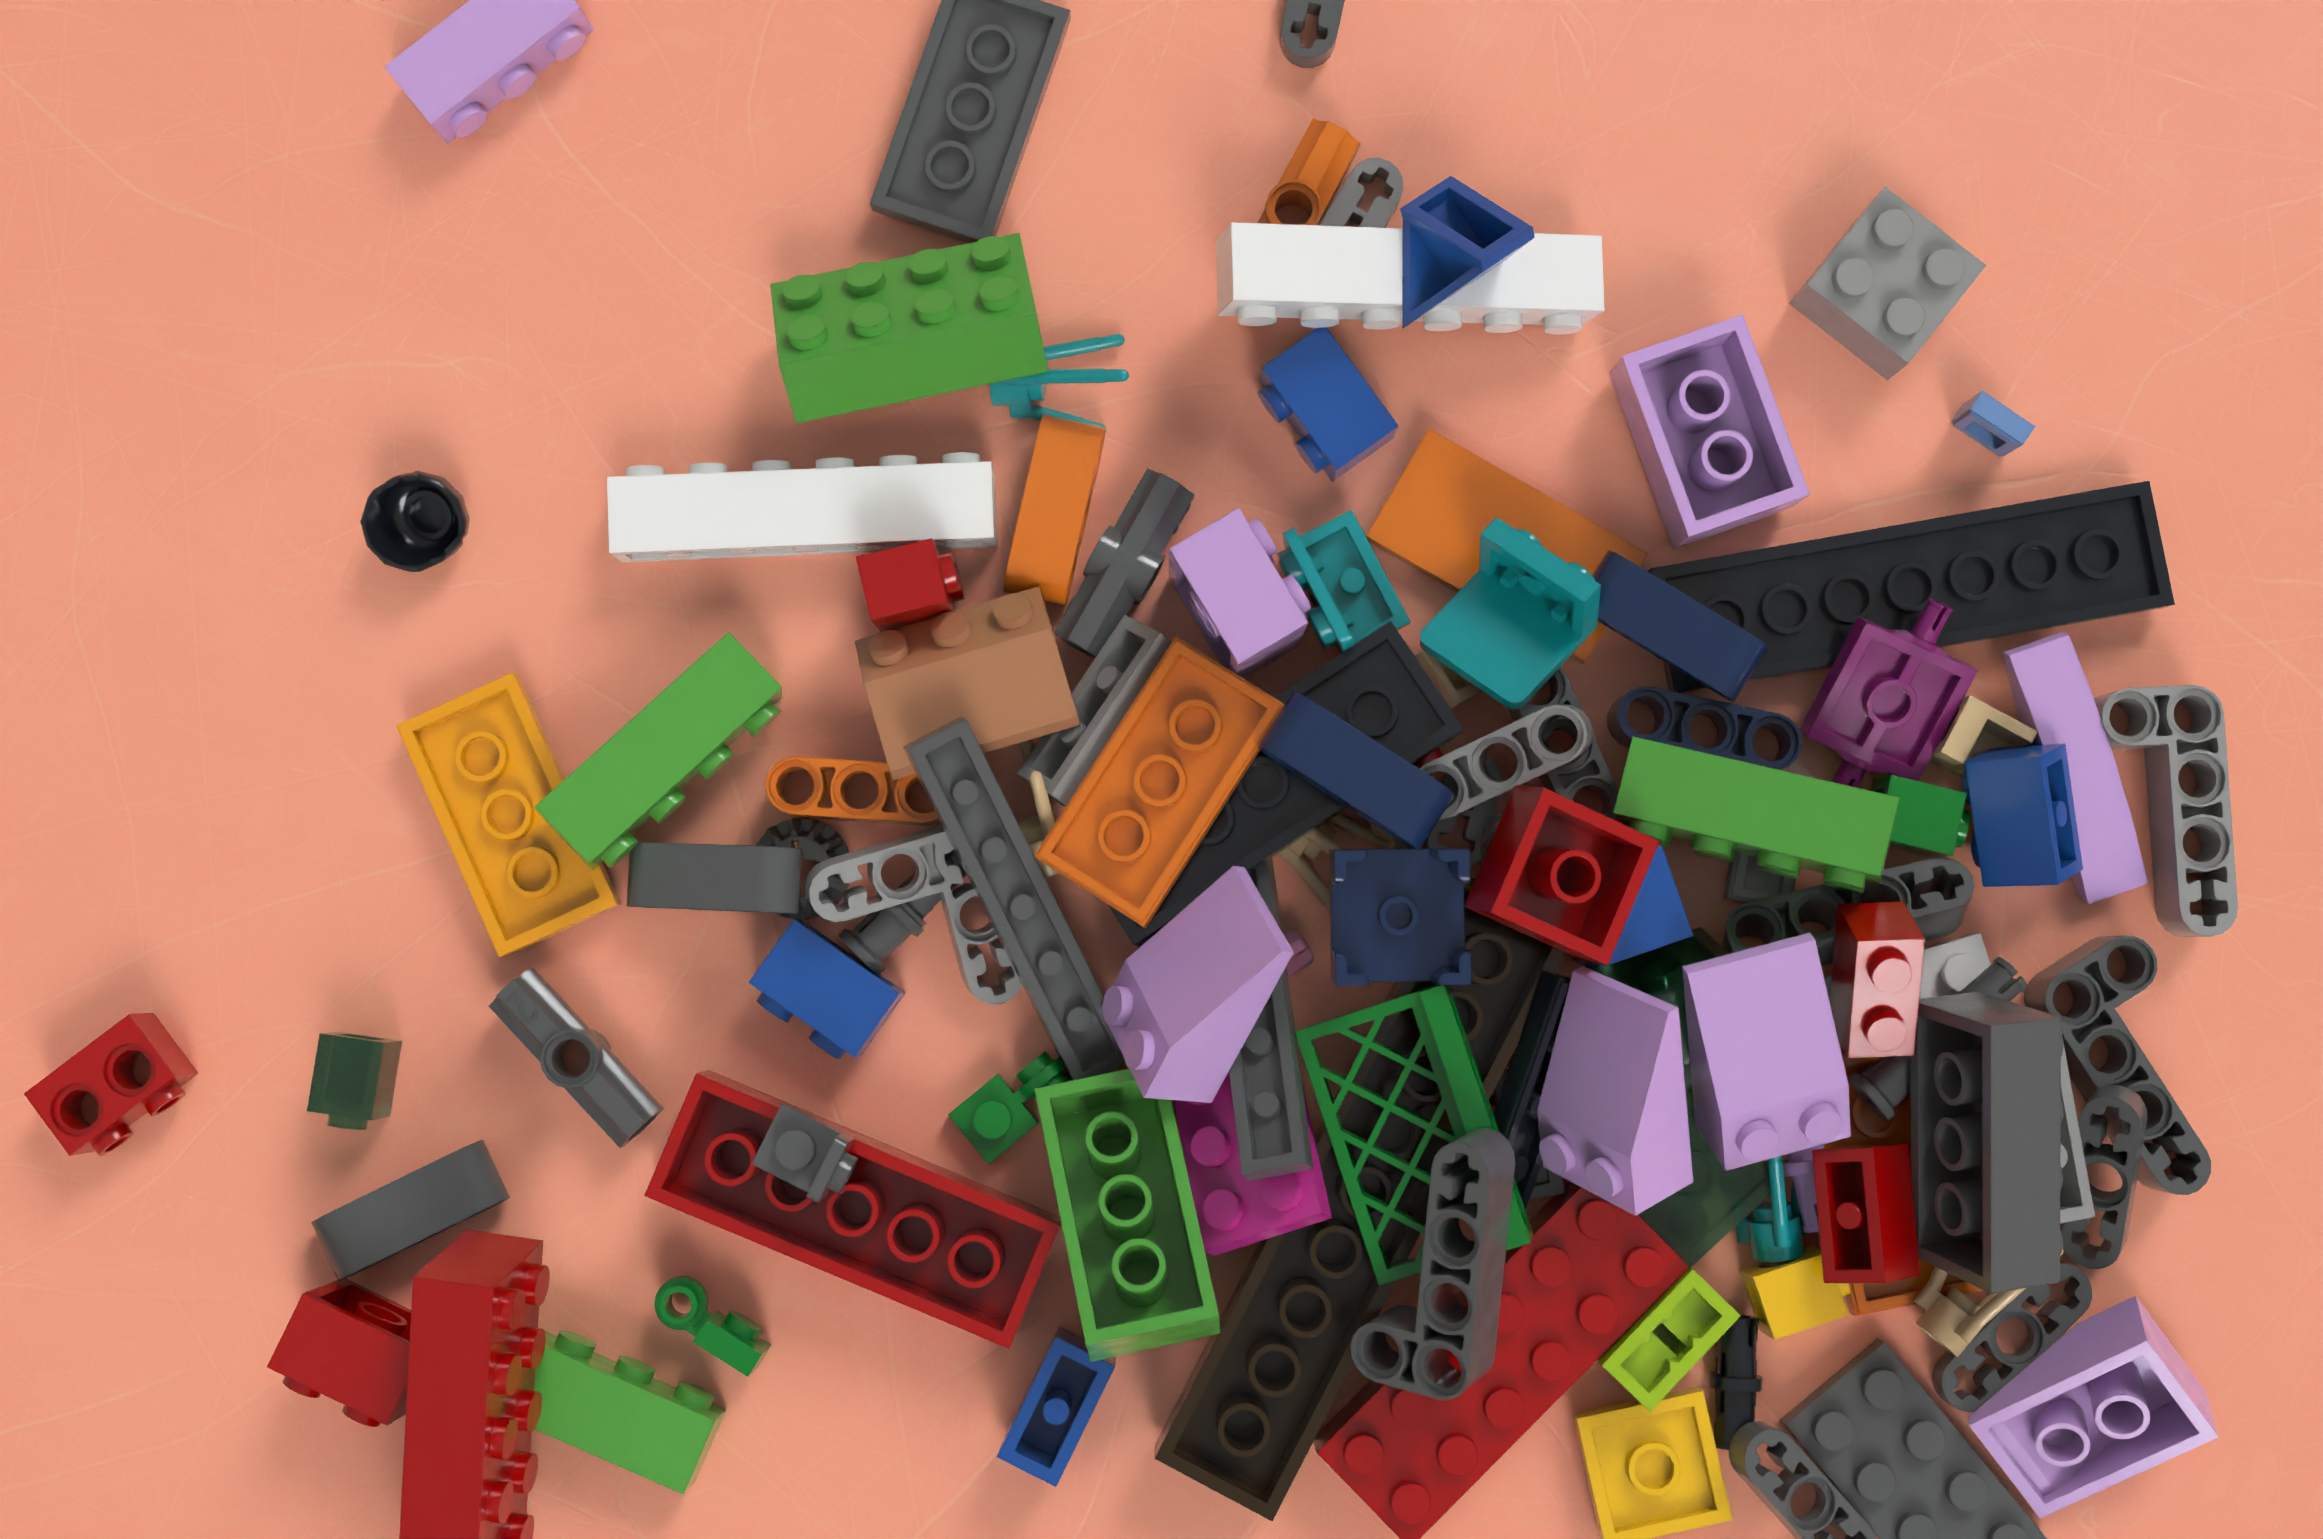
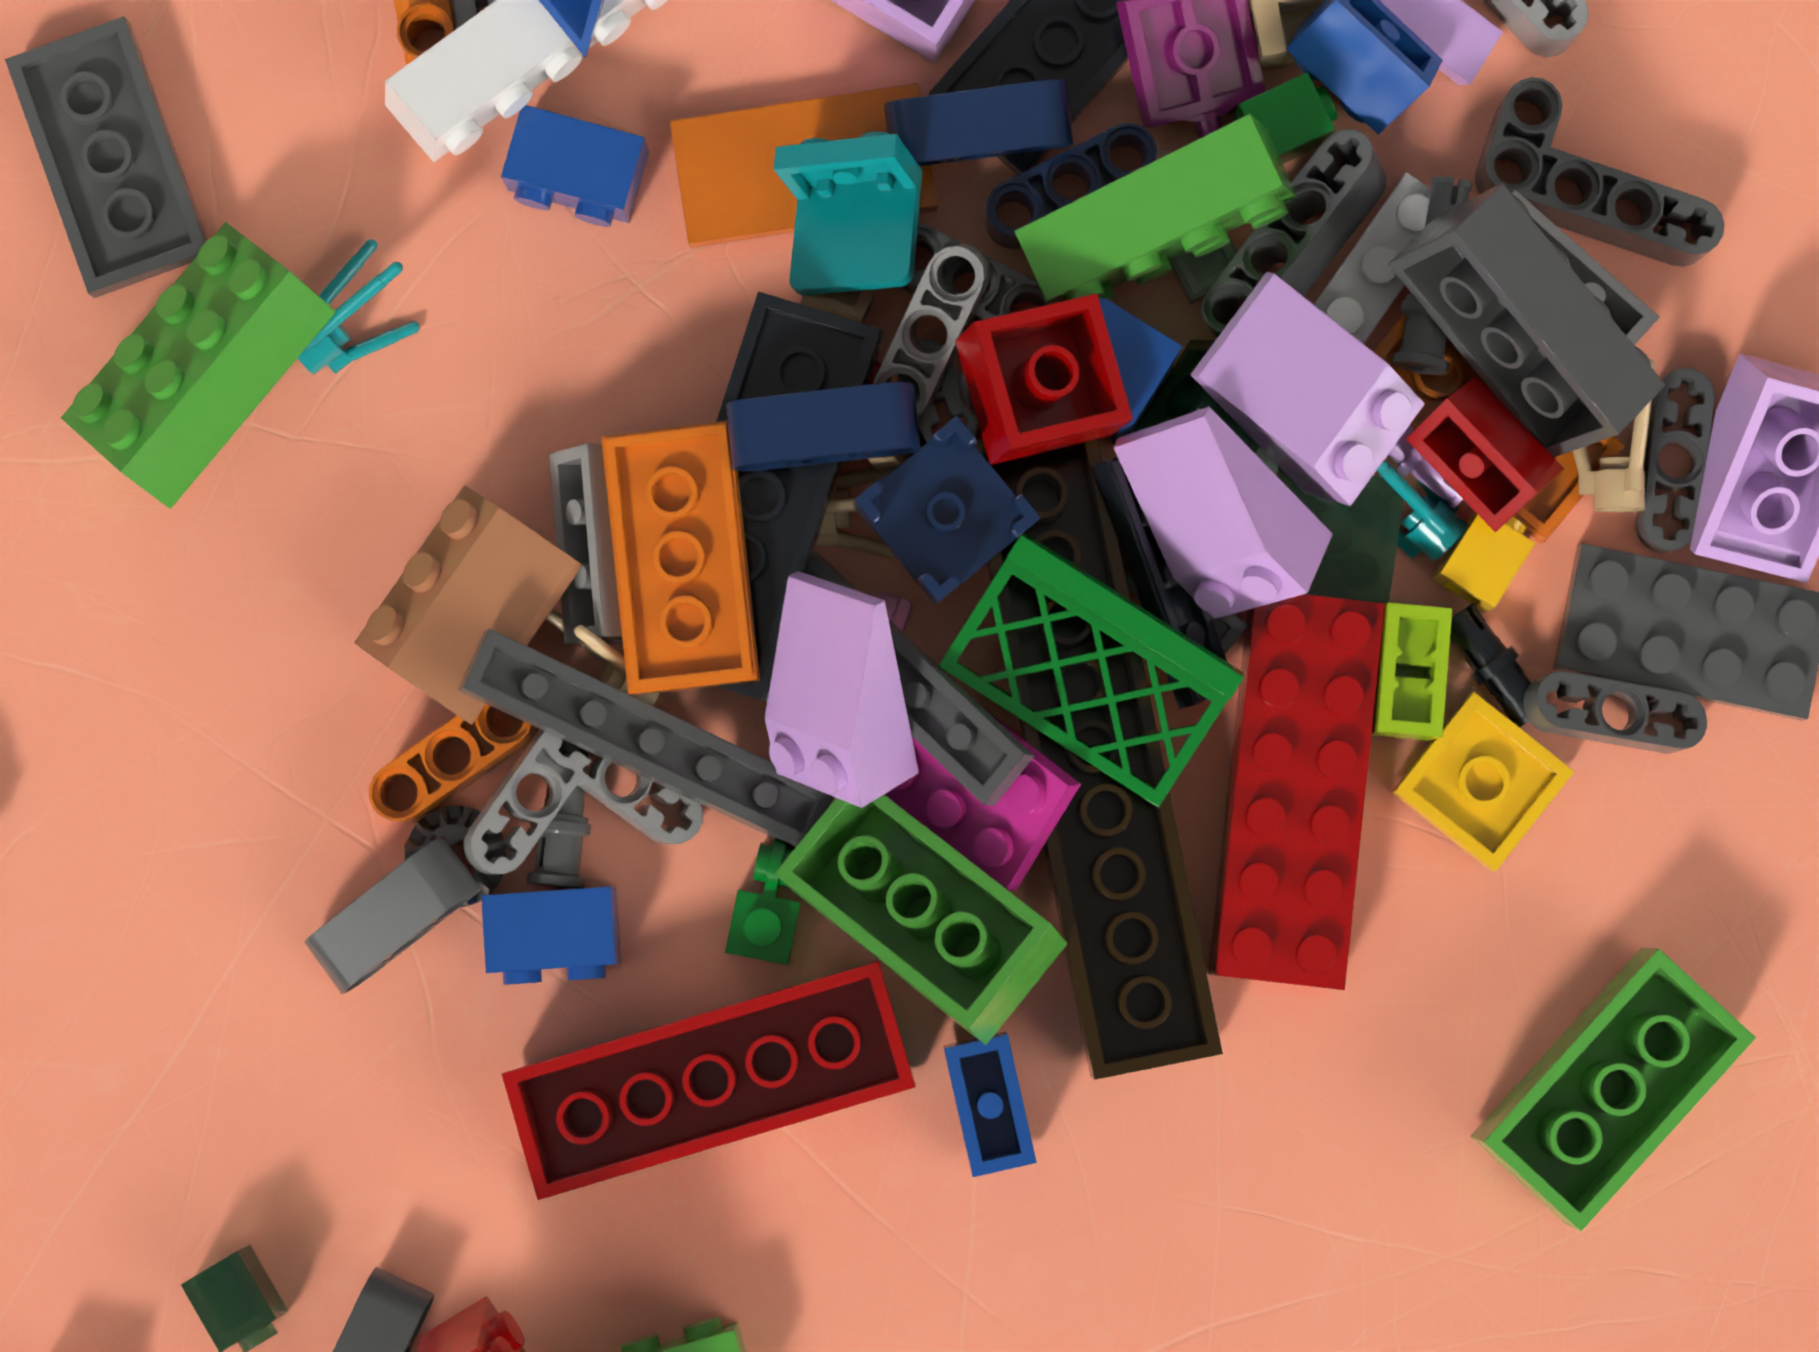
camera: 40 degrees left, 0 degrees up
(484, 775) = (190, 999): light orange plate -> none
(546, 1028) = (357, 1137): dark grey piece -> none
(660, 752) = (272, 851): bright green brick -> none
(728, 1337) = (695, 1260): green plate -> none
(801, 509) = (229, 575): white brick -> none
(806, 1153) = (637, 1063): dark grey bracket -> none
(909, 584) = (360, 563): red brick -> none
(1054, 508) = (427, 415): orange beam -> none
(1124, 562) = (516, 414): dark grey piece -> none
(1238, 594) = (623, 365): lavender brick -> none
(1342, 581) = (697, 293): teal bracket -> none
(1483, 1169) = (1163, 650): dark grey beam -> none
(1876, 979) = (1349, 268): brick -> none
(2122, 1156) = (1639, 236): dark grey beam -> none

